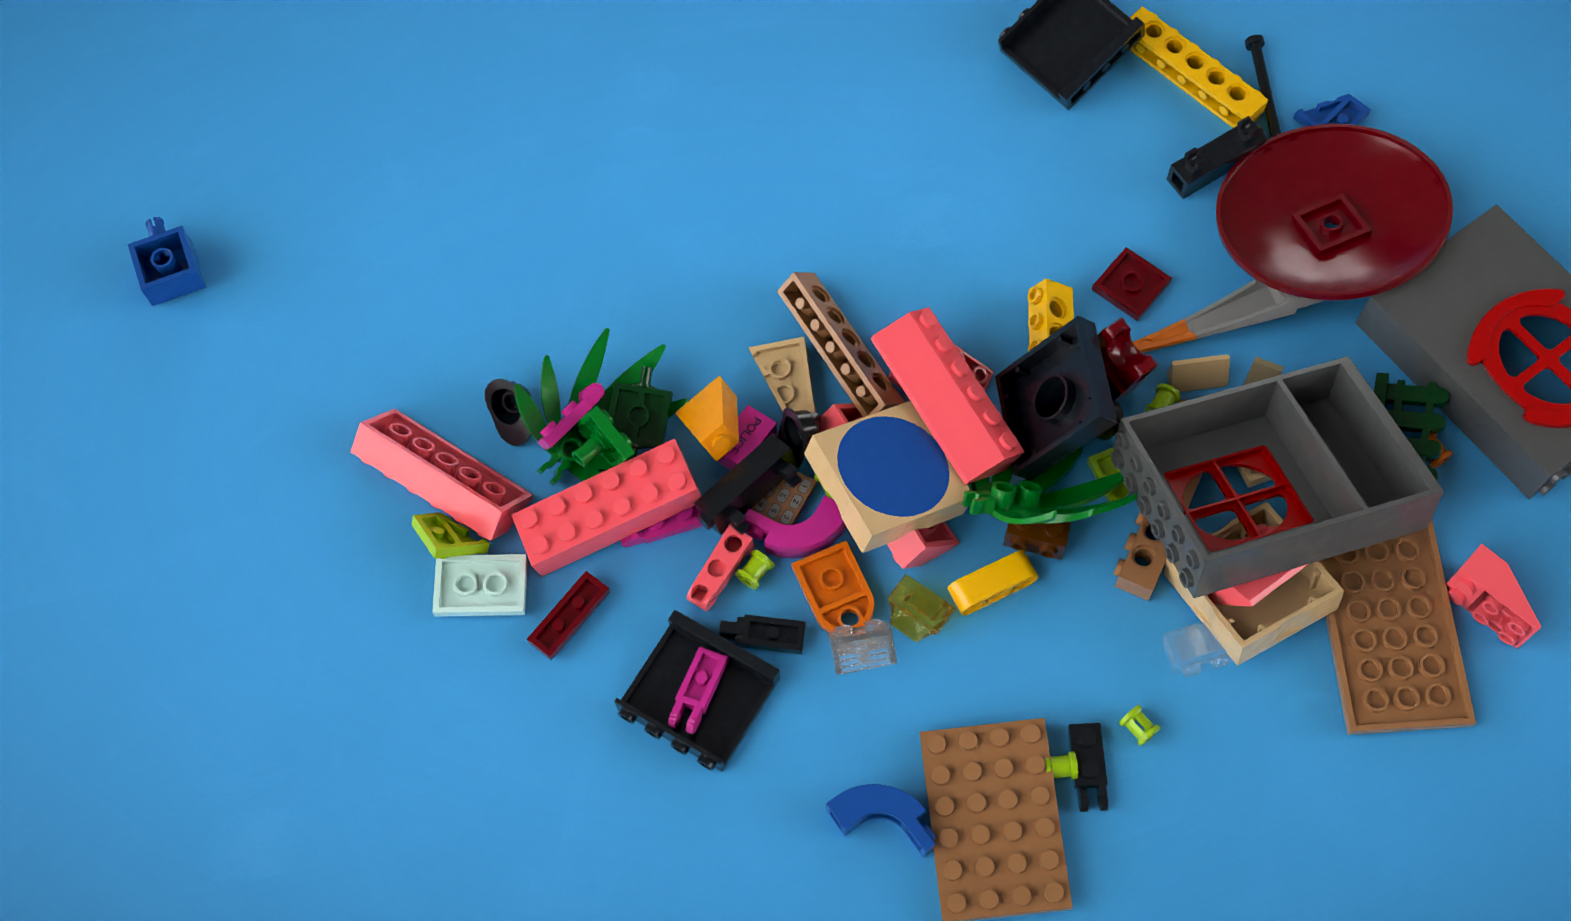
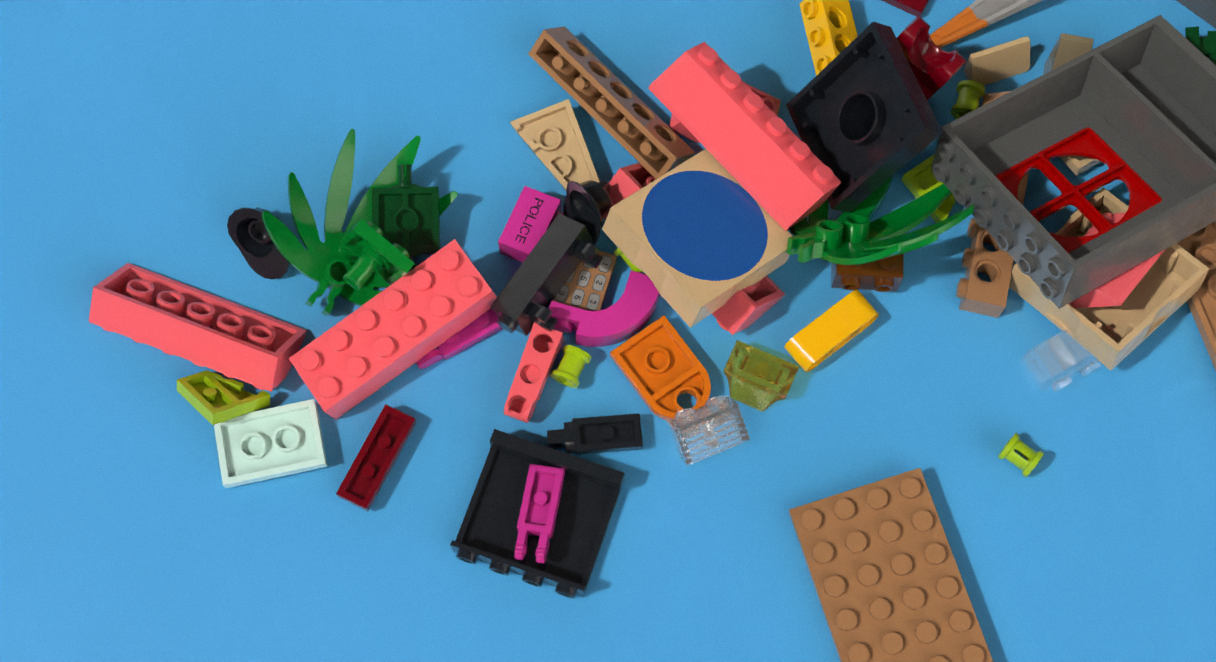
camera: 15 degrees left, 5 degrees up
(572, 414) = (332, 233): dark pink hinge -> none
(713, 418) = (489, 208): light orange slope -> none
(882, 802) = (765, 596): blue arch -> none
(1063, 765) = (951, 514): lime bush -> none
(1088, 746) = (975, 507): black hinge -> none

